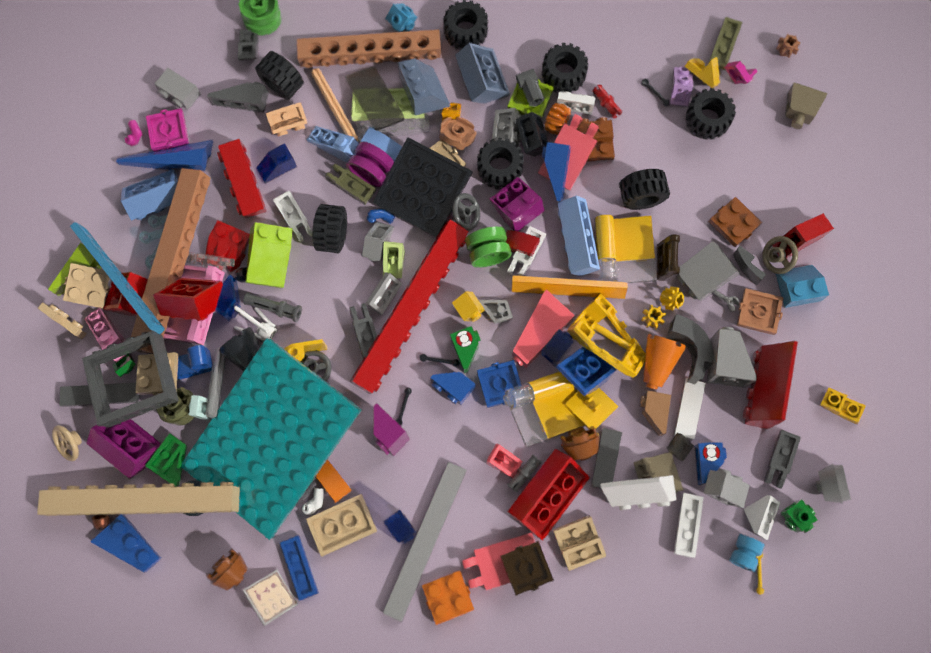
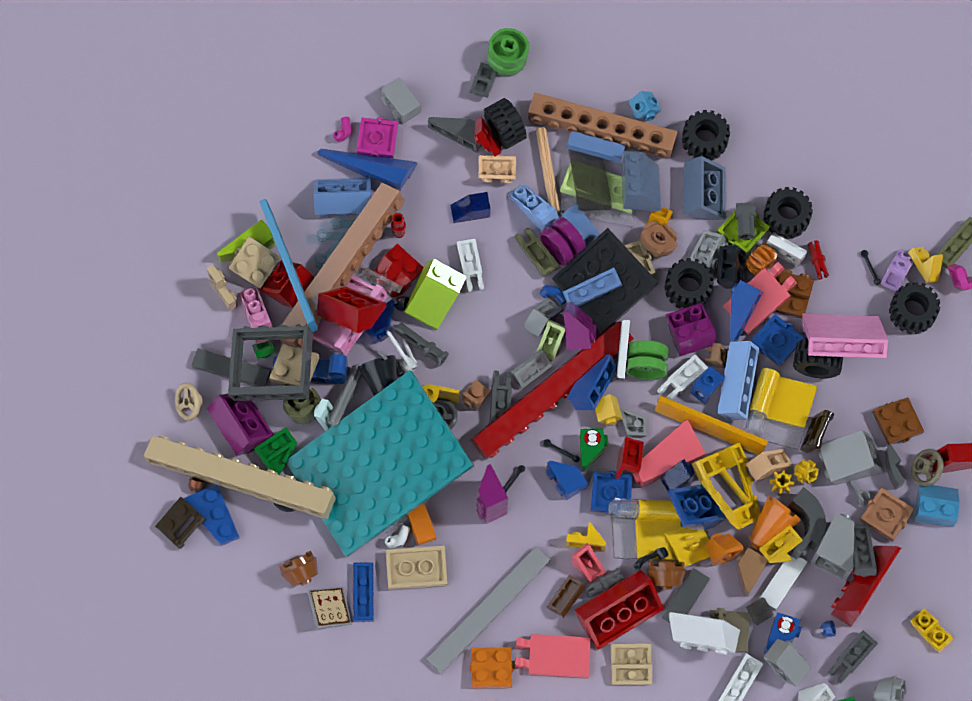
camera: 15 degrees right, 5 degrees down
(91, 563) = (176, 518): none -> dark brown plate
(212, 202) = (398, 225): none -> red pin
(241, 178) = (434, 211): red wedge -> none
(264, 92) = (484, 136): none -> red plate
(329, 228) = (502, 289): black tyre -> none
(340, 337) = (475, 395): none -> nougat bracket
(370, 69) = (595, 146): none -> medium blue tile
(400, 527) = (470, 587): clear blue slope -> none
(413, 198) = (593, 288): none -> medium blue tile
(414, 239) = (578, 328): none -> magenta slope
(446, 289) = (591, 386): none -> blue slope
(462, 244) = (623, 348): none -> white tile
(463, 212) = (637, 318): dark grey piece -> none
(494, 500) = (566, 596): none -> reddish brown plate
(499, 436) = (593, 538): none -> yellow slope
(505, 344) = (629, 456): none -> red panel
(522, 242) = (681, 367): red slope -> none
(527, 568) = (574, 665): dark brown plate -> none
(551, 220) = (718, 355): none -> medium nougat tile
(551, 250) = (706, 384): none -> blue bracket
(568, 425) = (661, 553): none -> black piece
(599, 186) = (777, 339): none -> blue plate
(624, 399) = (723, 548): none -> orange slope
(635, 304) = (767, 463): none -> light nougat slope
(663, 159) = (845, 335): none -> bright pink panel
(676, 379) = (778, 547): none -> yellow slope
(750, 440) = (828, 628): none -> blue hinge
(761, 360) = (863, 552): none -> dark grey plate

